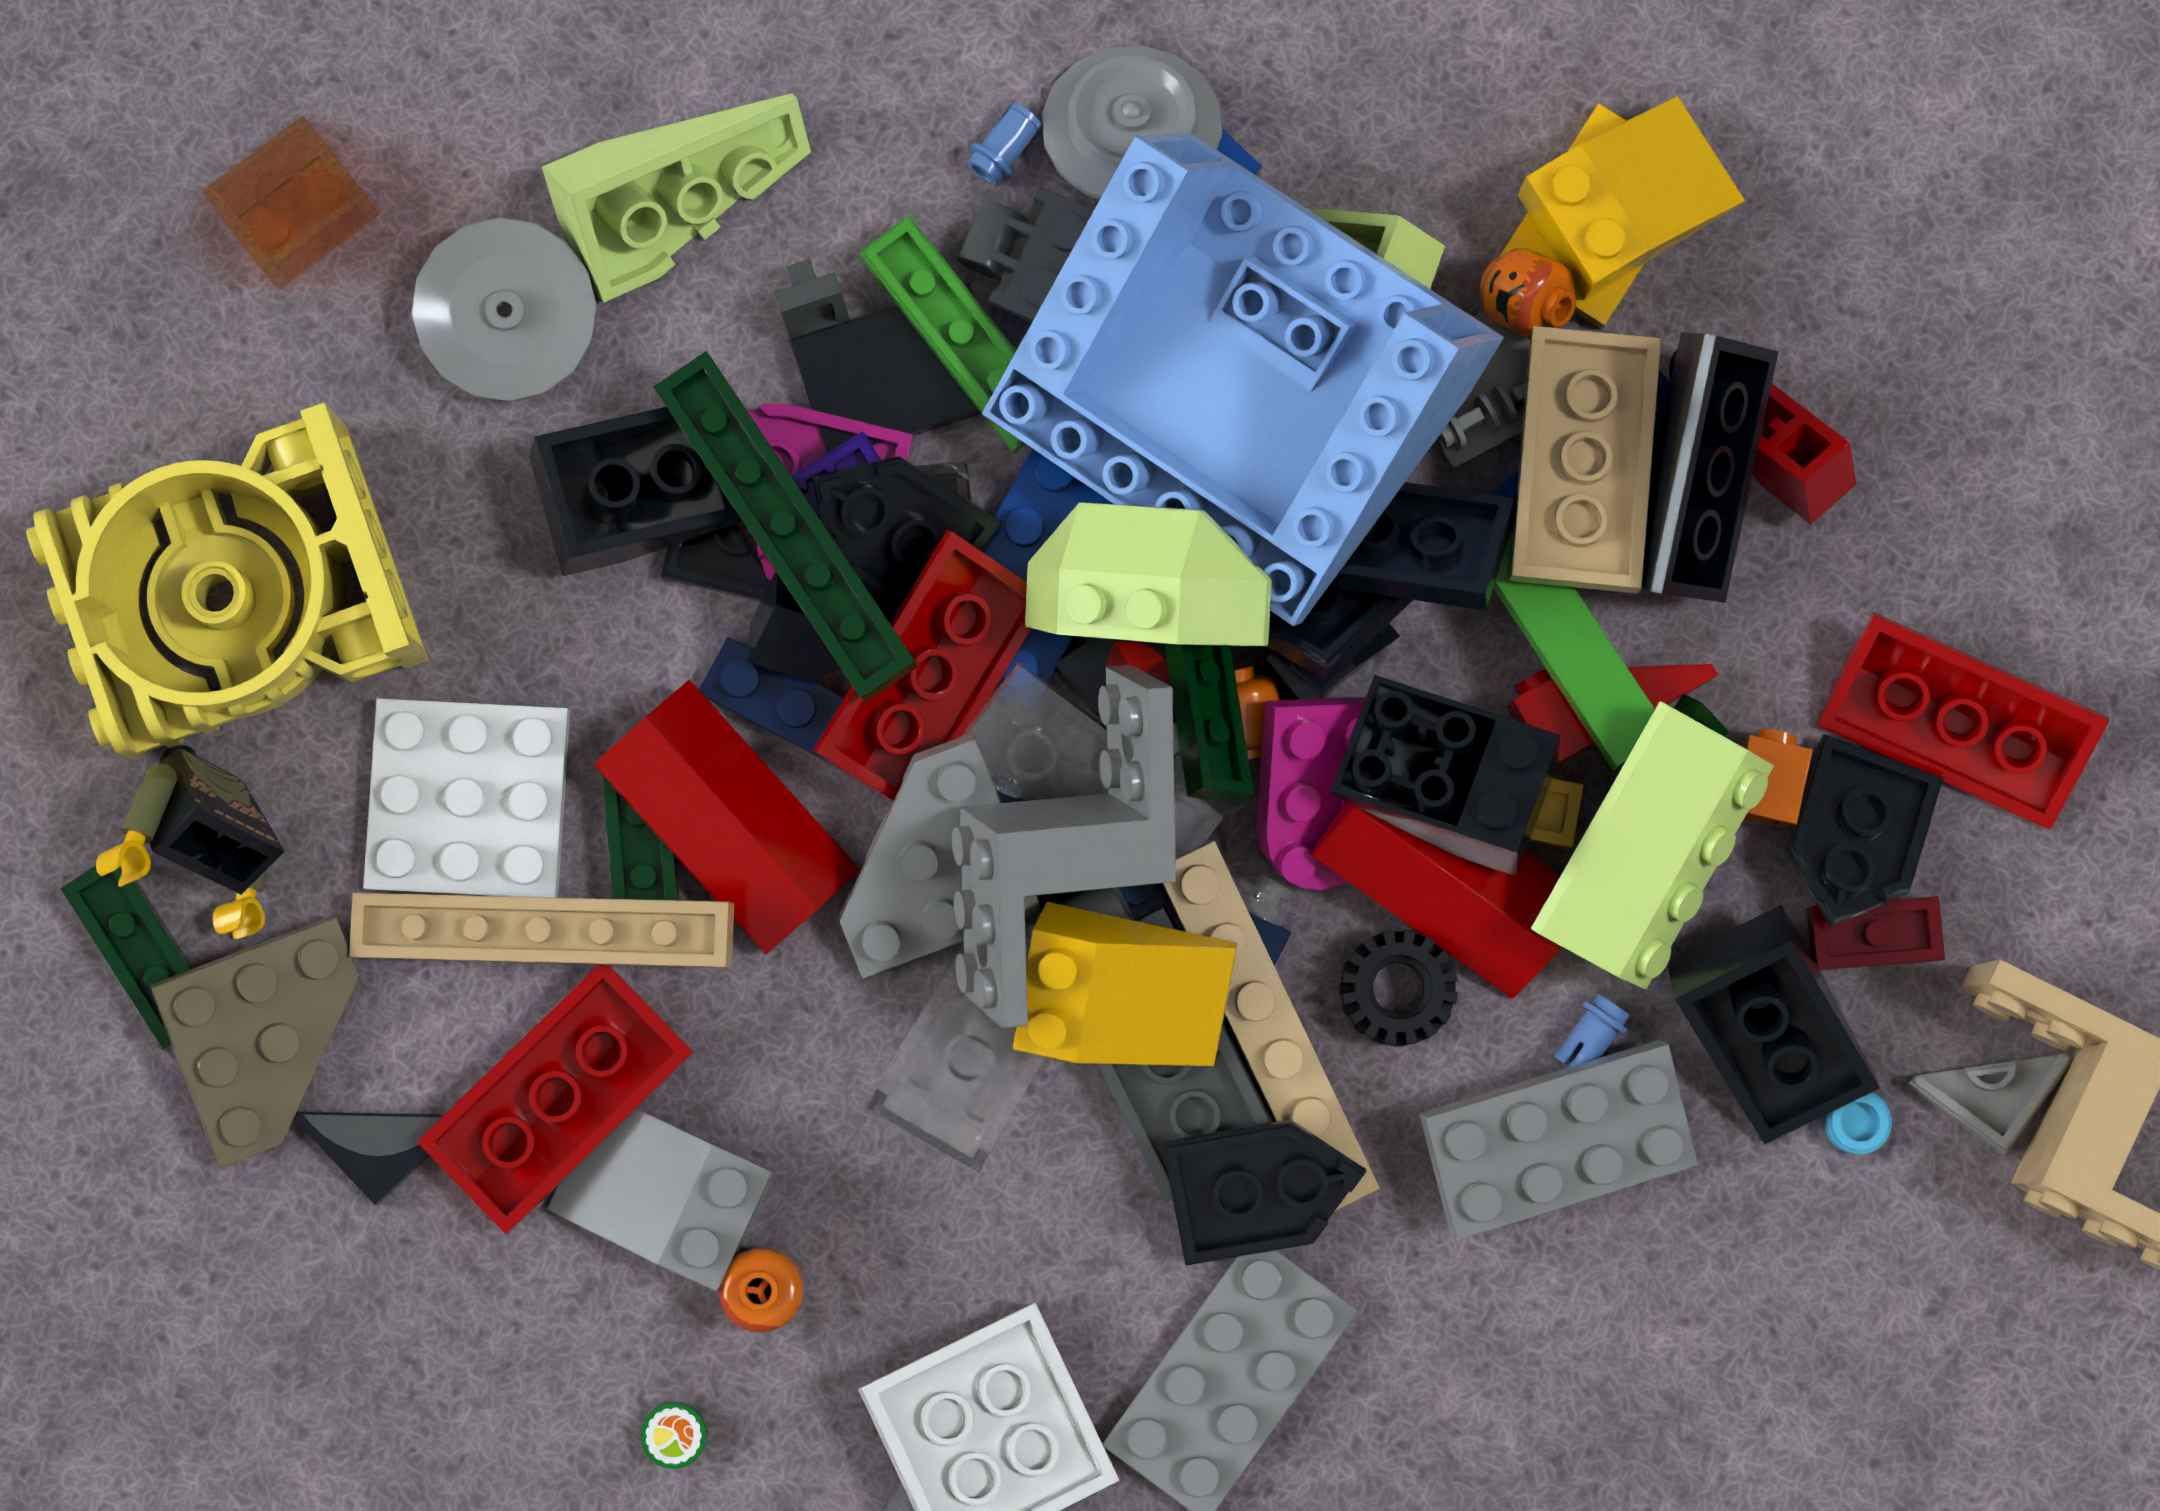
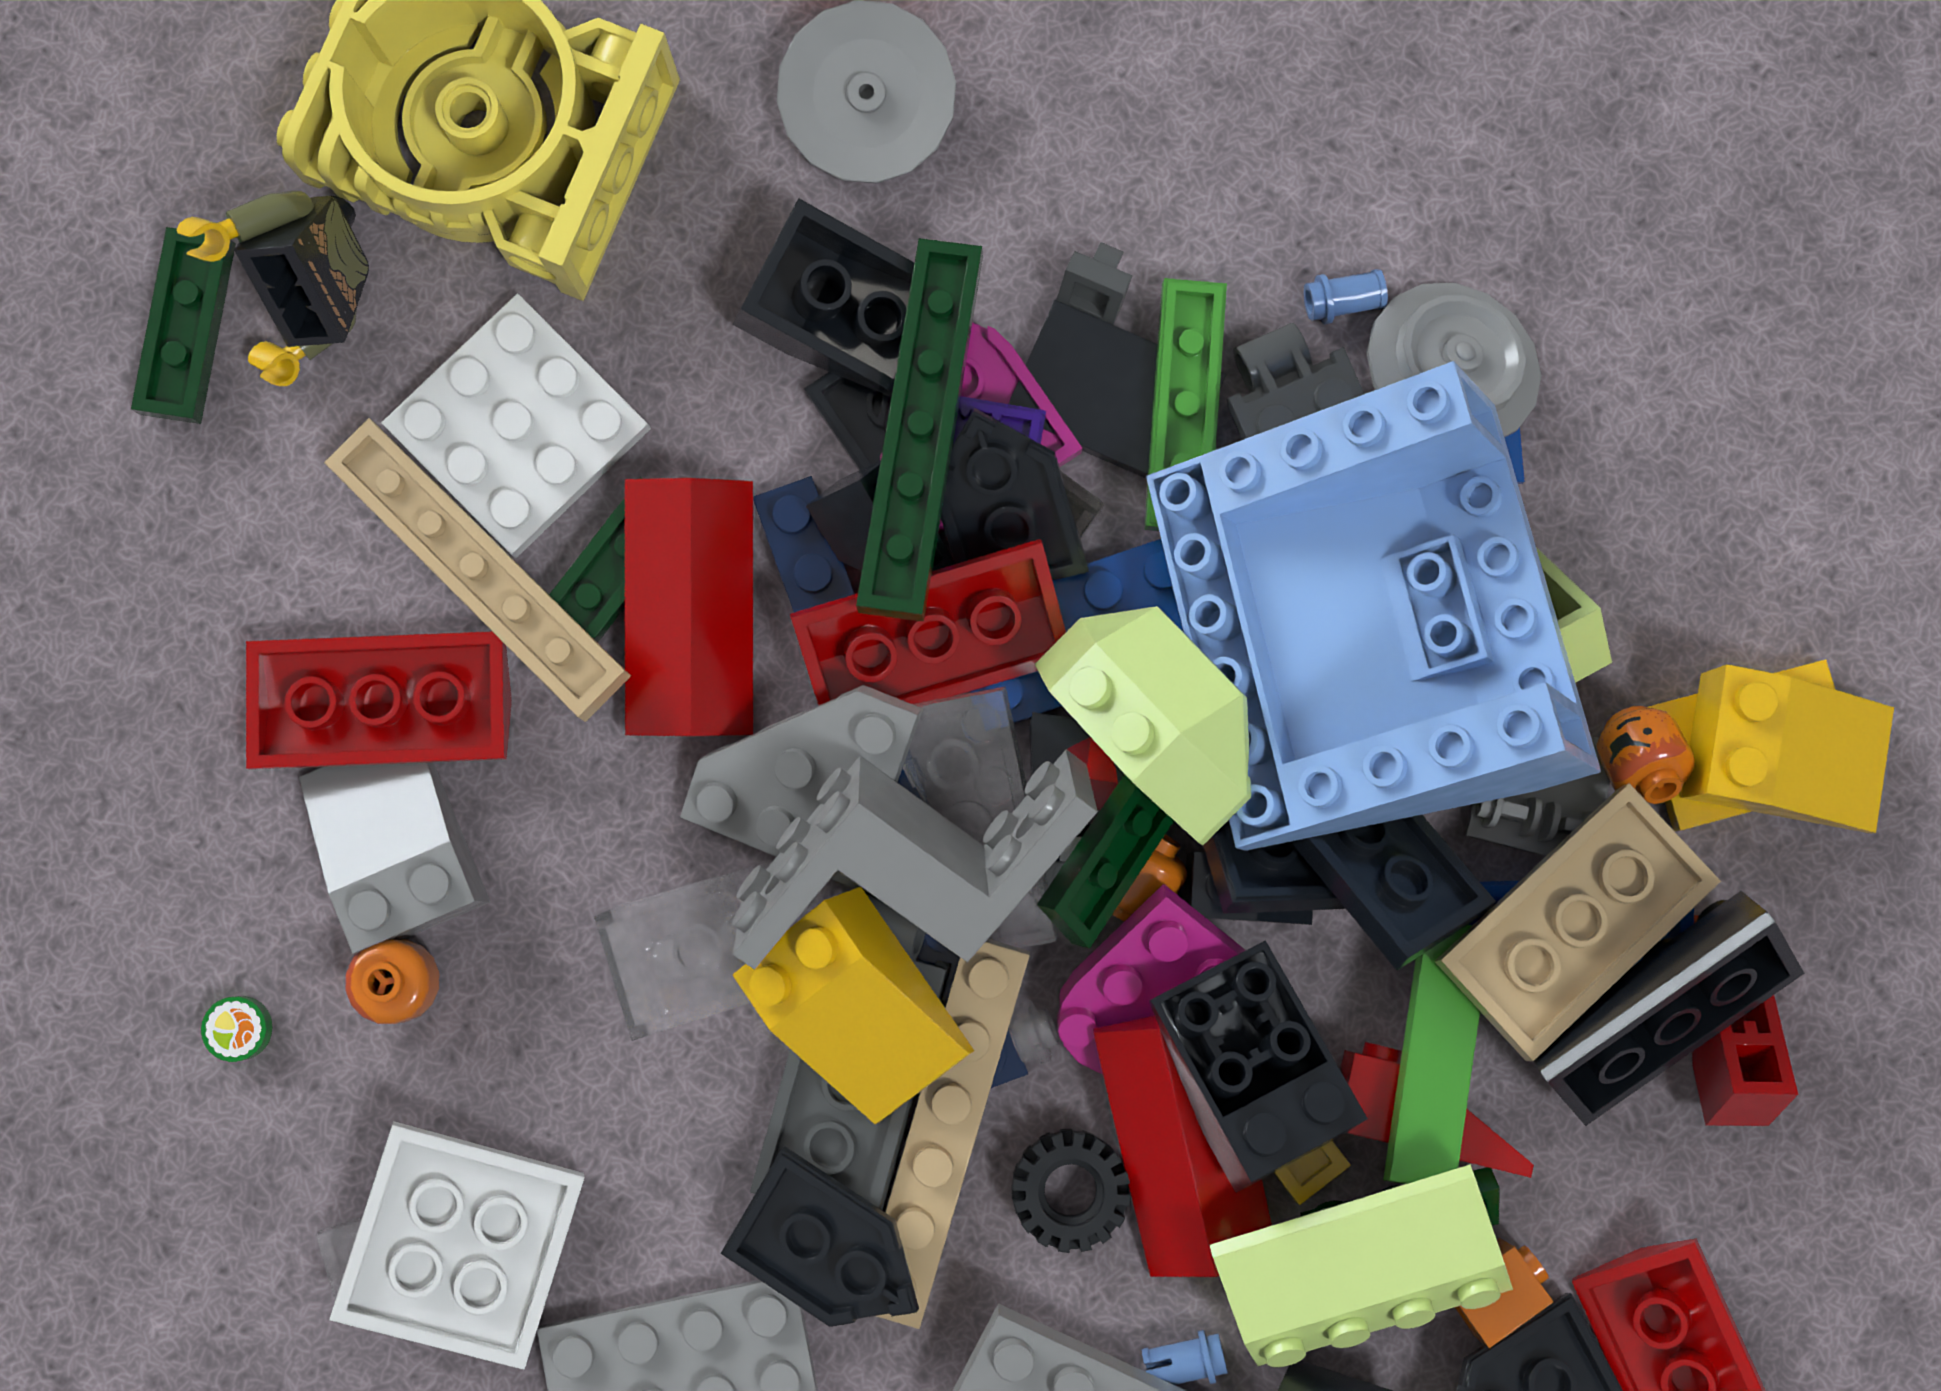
camera: 45 degrees right, 0 degrees up
(256, 1032) = (207, 456): dark tan plate -> none
(371, 1147) = (215, 614): tile -> none
(654, 190) = (1057, 104): yellowish green wedge -> none

